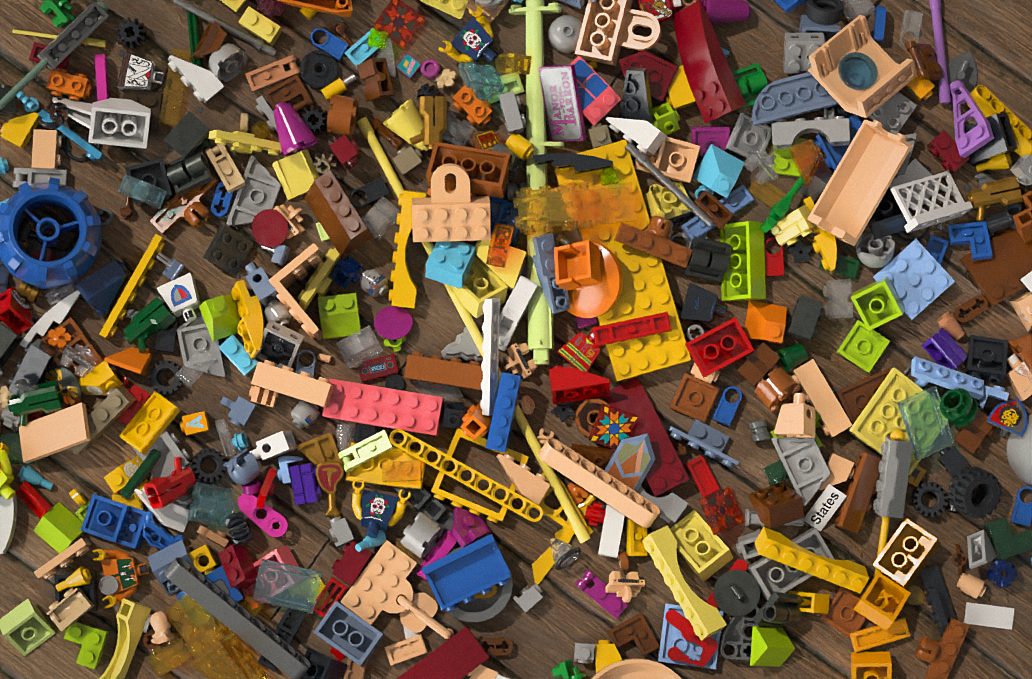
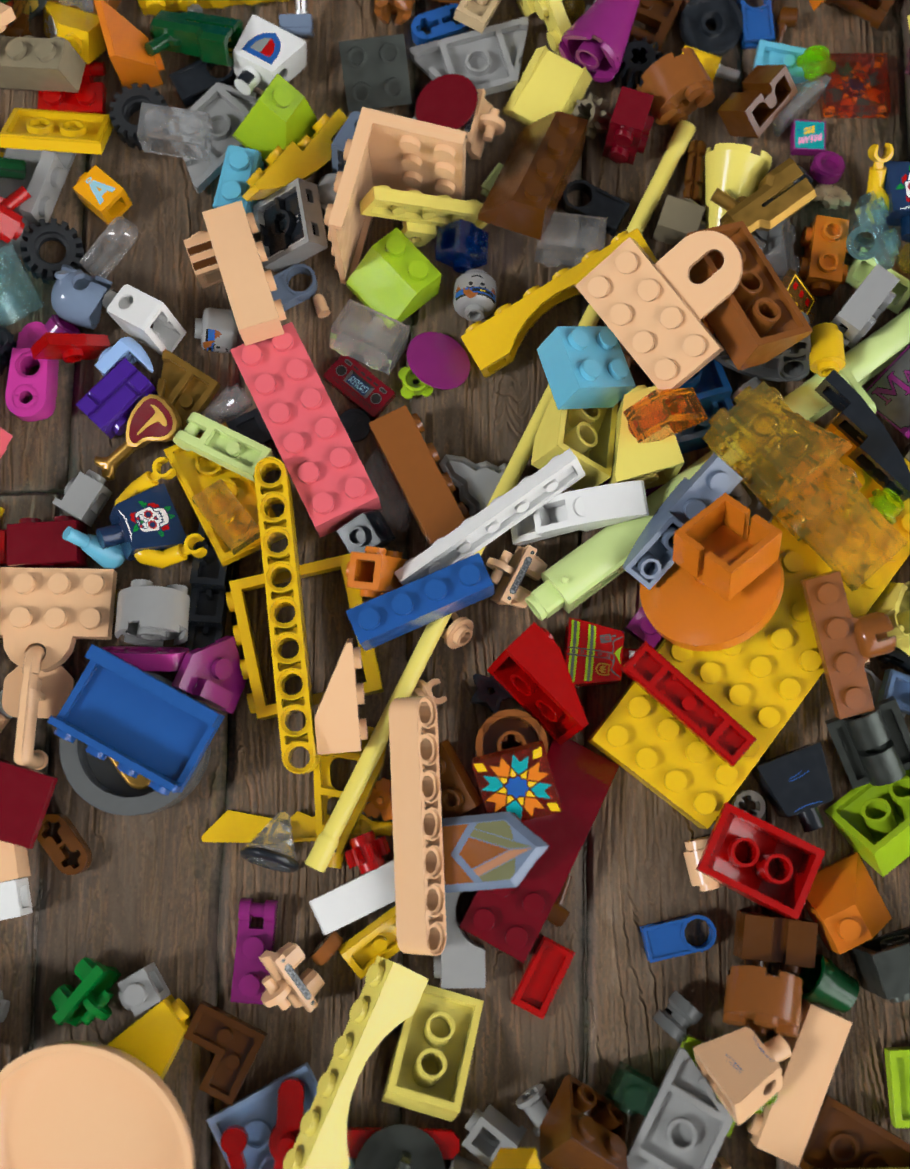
camera: 50 degrees right, 5 degrees down
(240, 411) = (162, 241): sand blue brick -> none
(240, 441) = (120, 271): medium azure plate -> none
(529, 597) = (170, 842): light grey brick -> none
(694, 398) = (651, 876): dark orange tile -> none
(706, 438) = (605, 945): sand blue bracket -> none
(721, 510) = (511, 1048): clear red tile -> none

